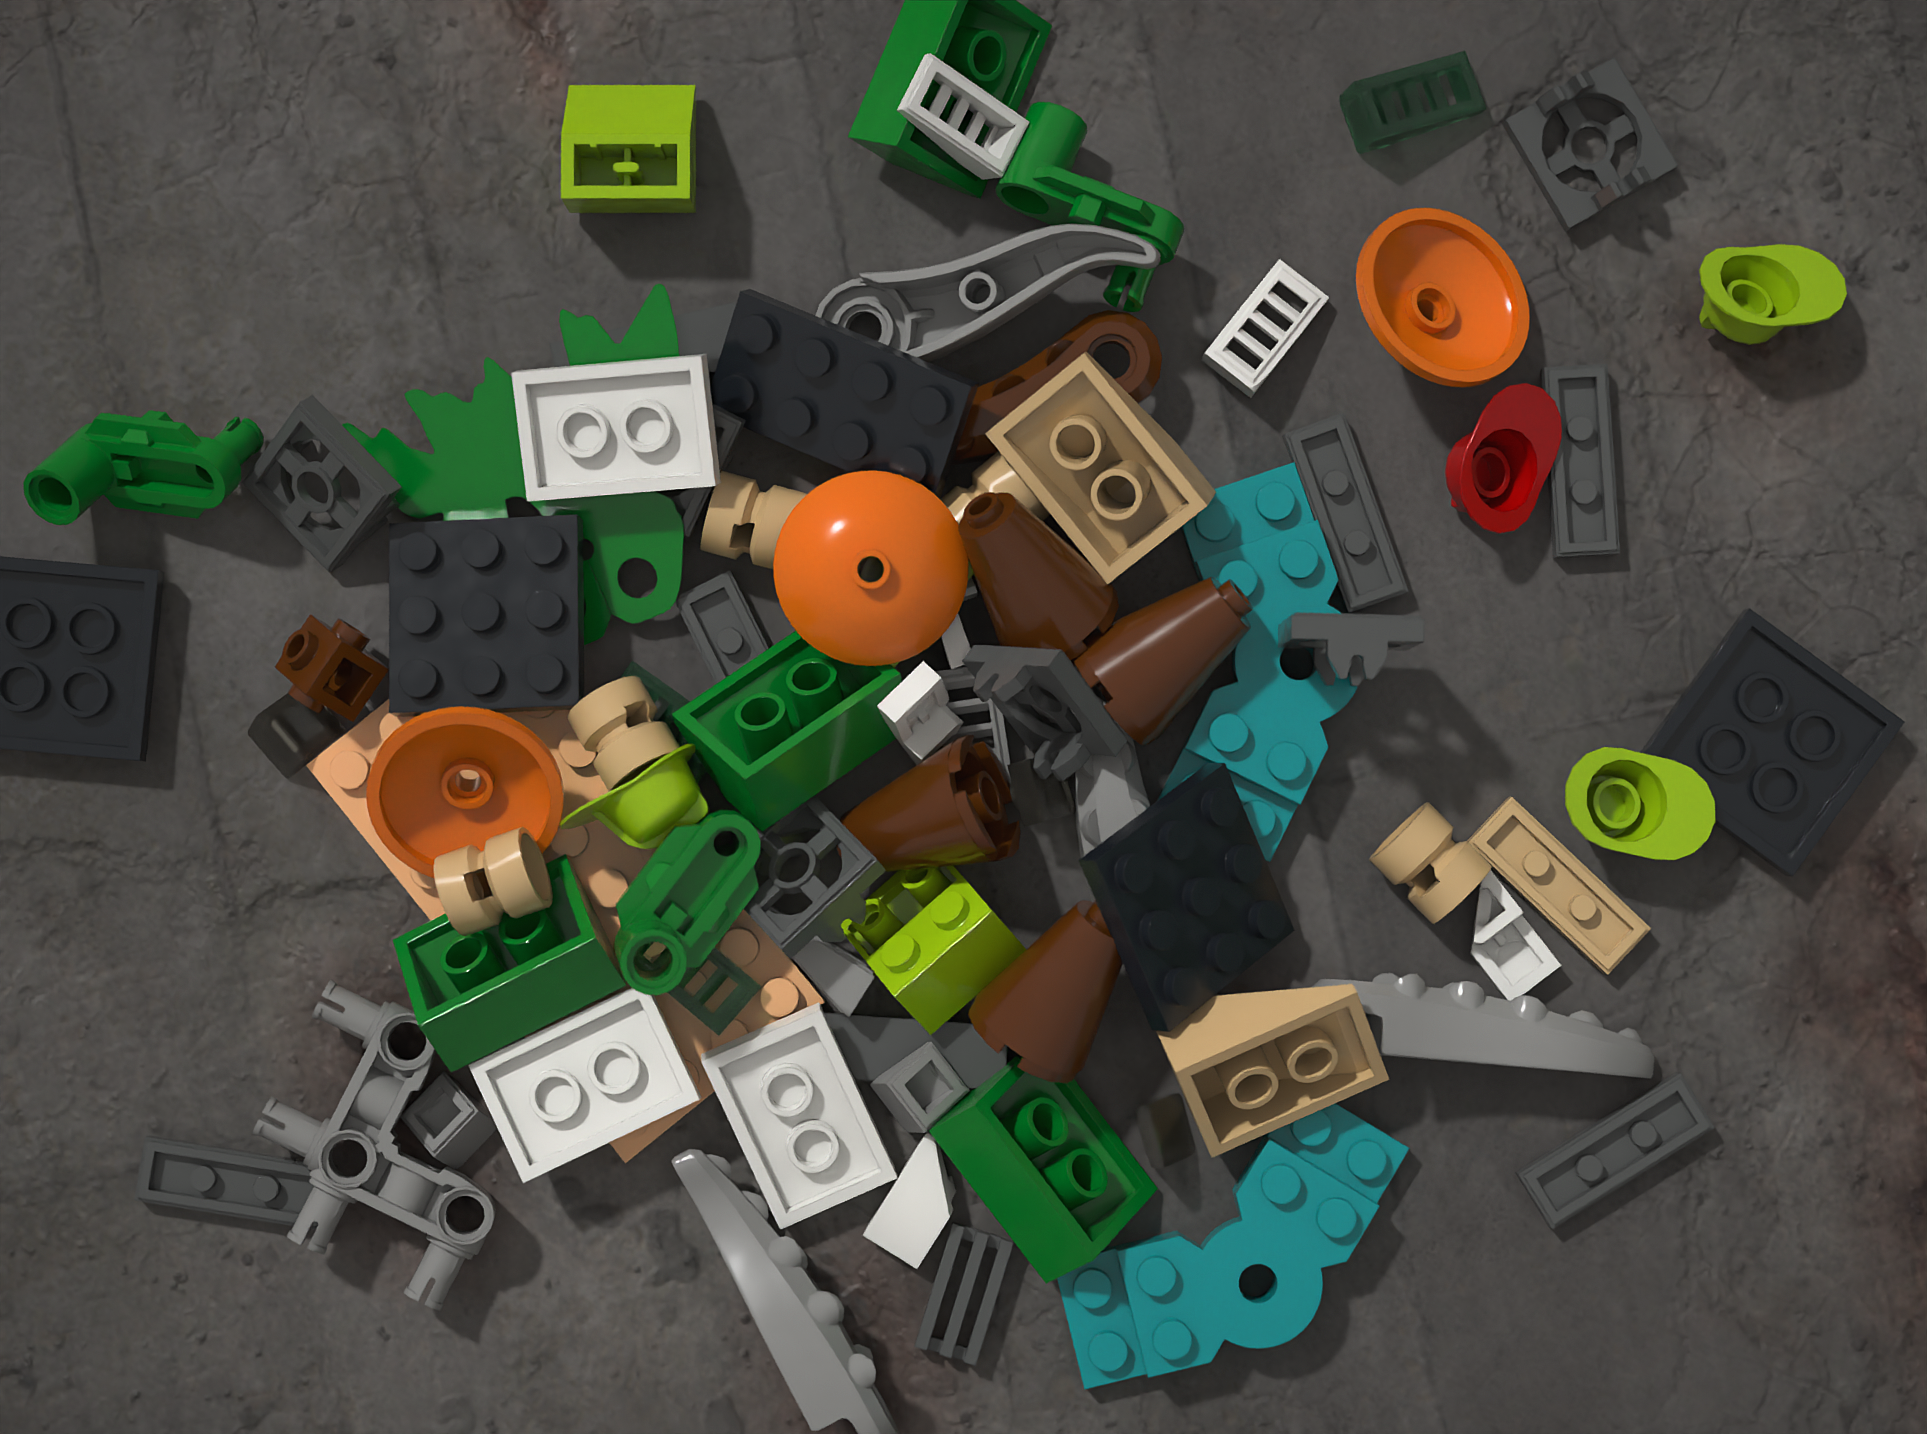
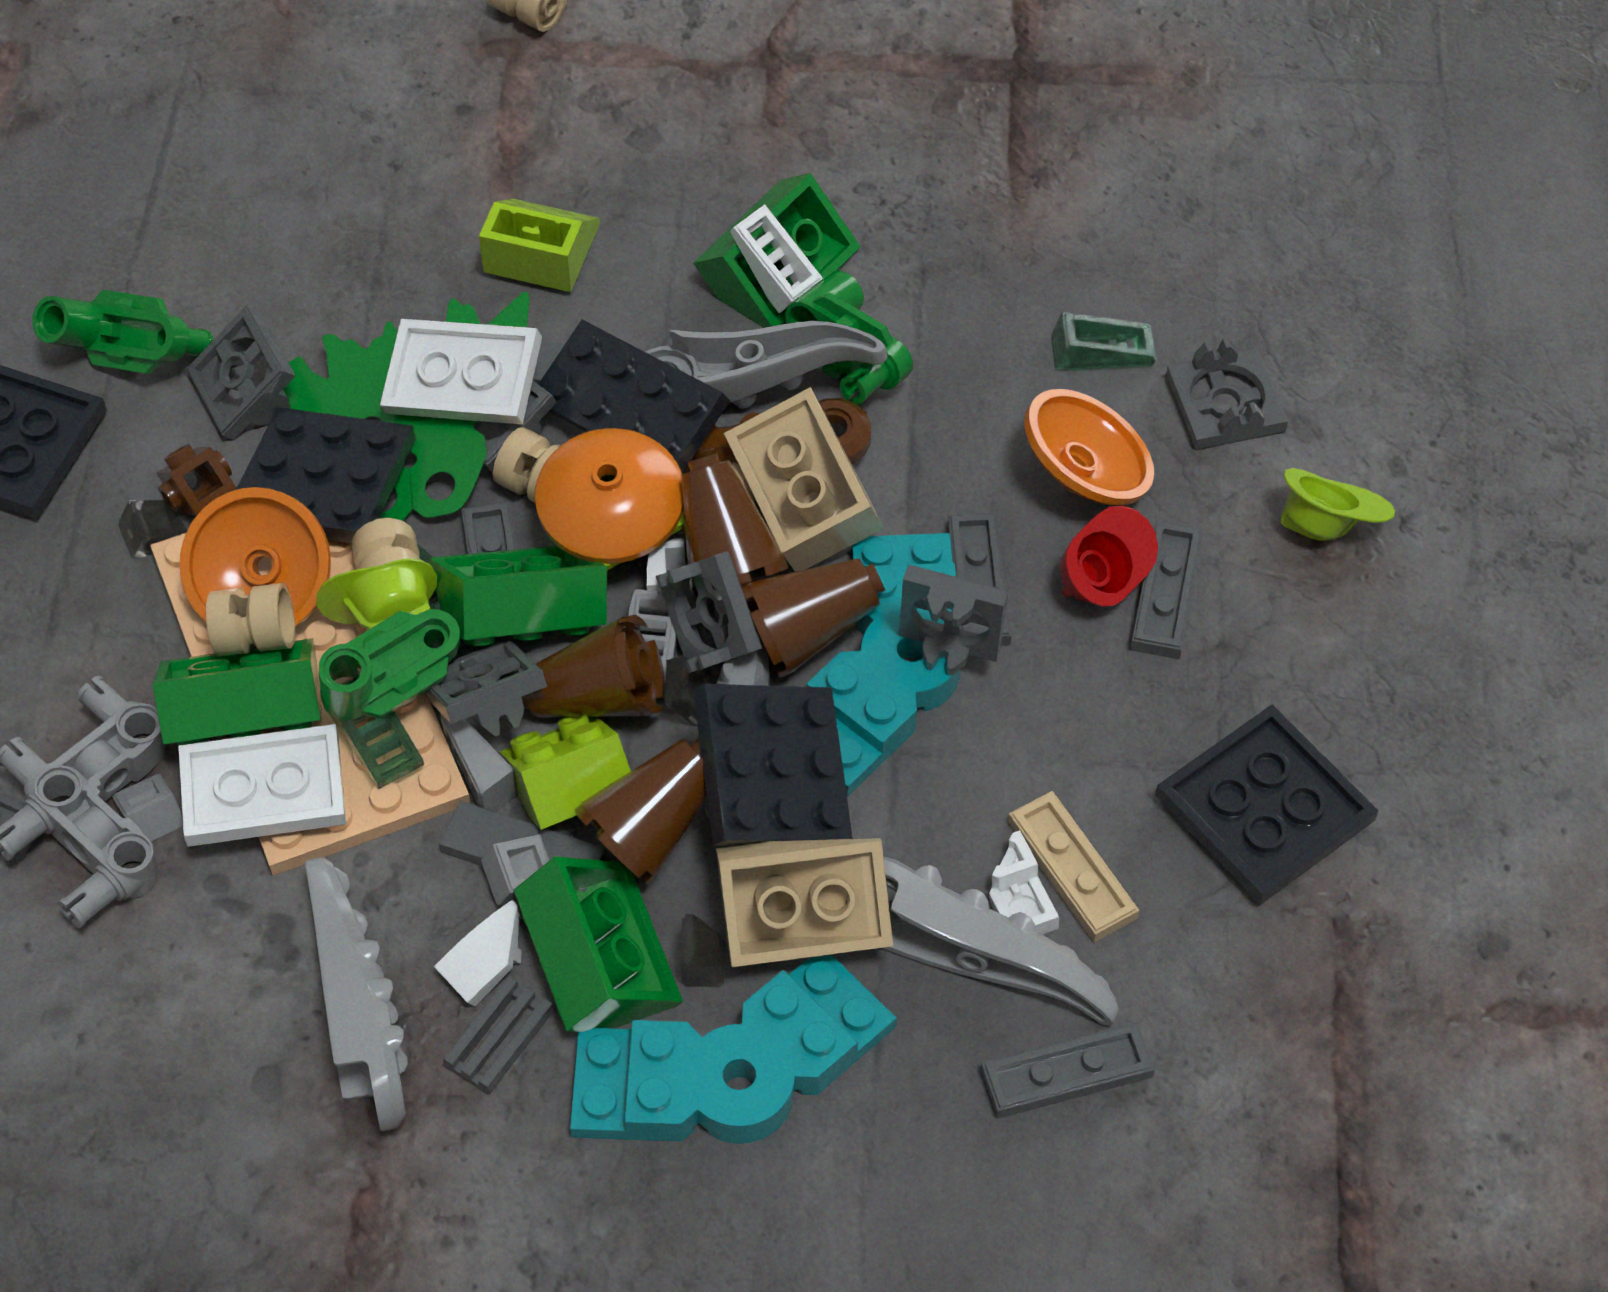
camera: 15 degrees right, 30 degrees down
(799, 1115) = (416, 859): white plate -> none
(919, 713) = (610, 593): white slope -> none
(1232, 366) = (936, 475): white slope -> none
(1430, 863) = (970, 806): tan wheel -> none
(1639, 804) = (1147, 805): lime piece -> none

